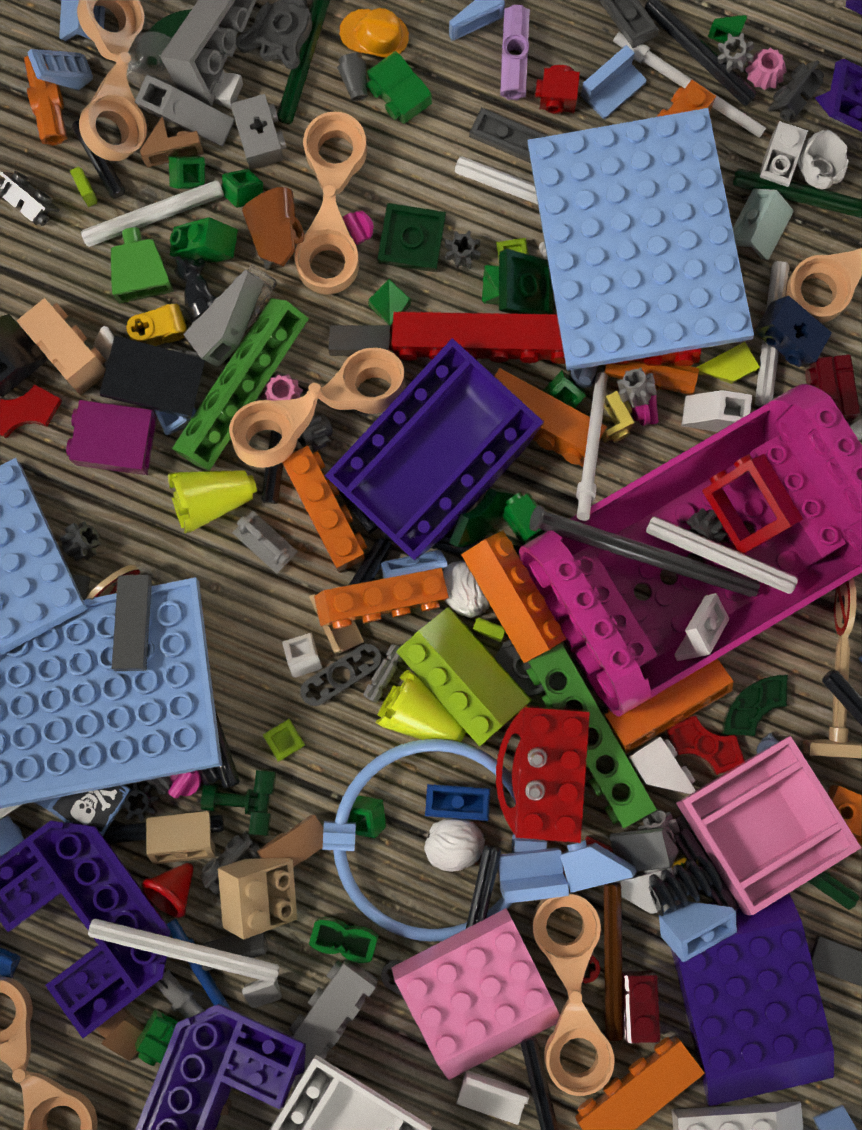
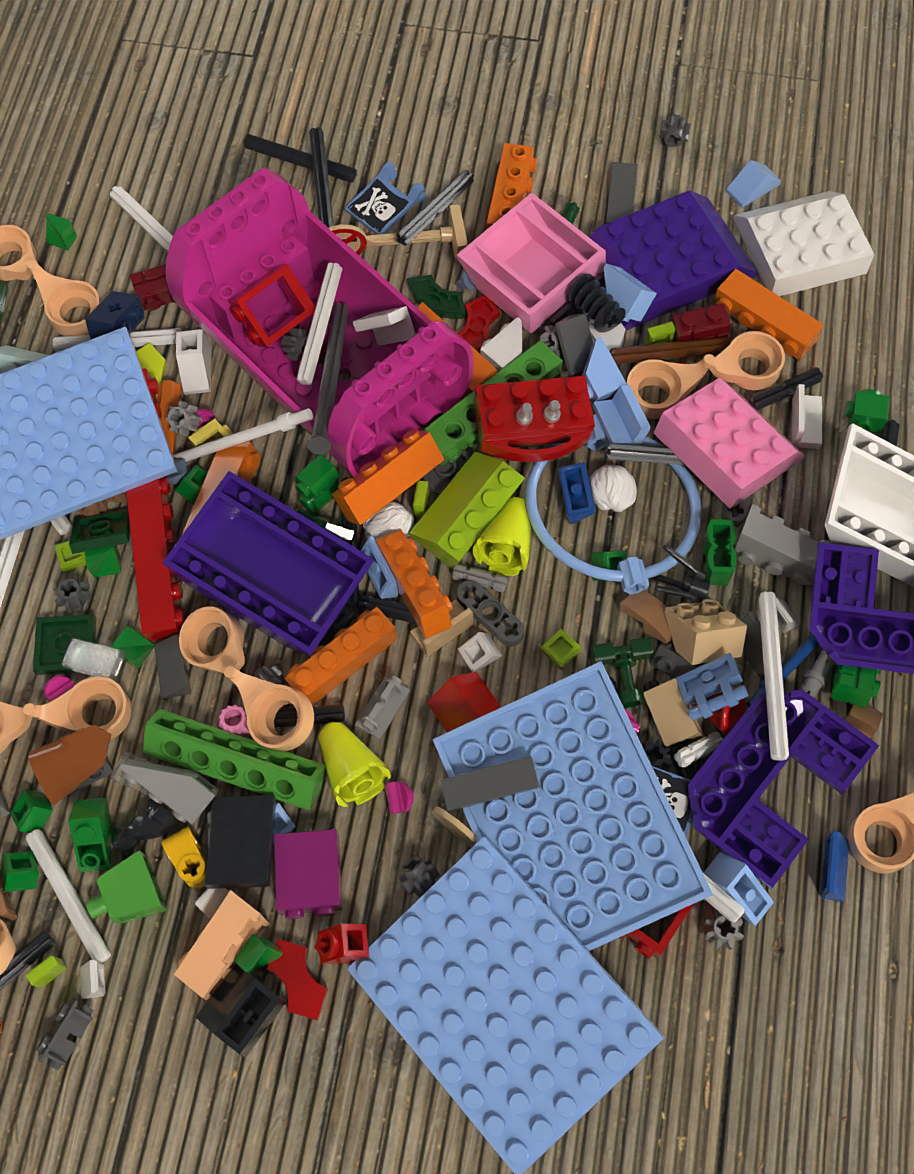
camera: 100 degrees left, 15 degrees down
(33, 456) = (342, 944): none -> red brick
(46, 374) = (257, 953): none -> green slope
(67, 227) = (92, 980): none -> white slope
(134, 852) = (698, 749): none -> white axle
(164, 538) = (399, 797): none -> dark pink plate
(195, 880) = (709, 680): none -> medium blue plate
(241, 628) = (462, 701): none -> red slope
(313, 900) = (692, 587): none -> black plant
(379, 261) = (93, 659): none -> clear tile
(639, 955) = (660, 334): none -> lime tile

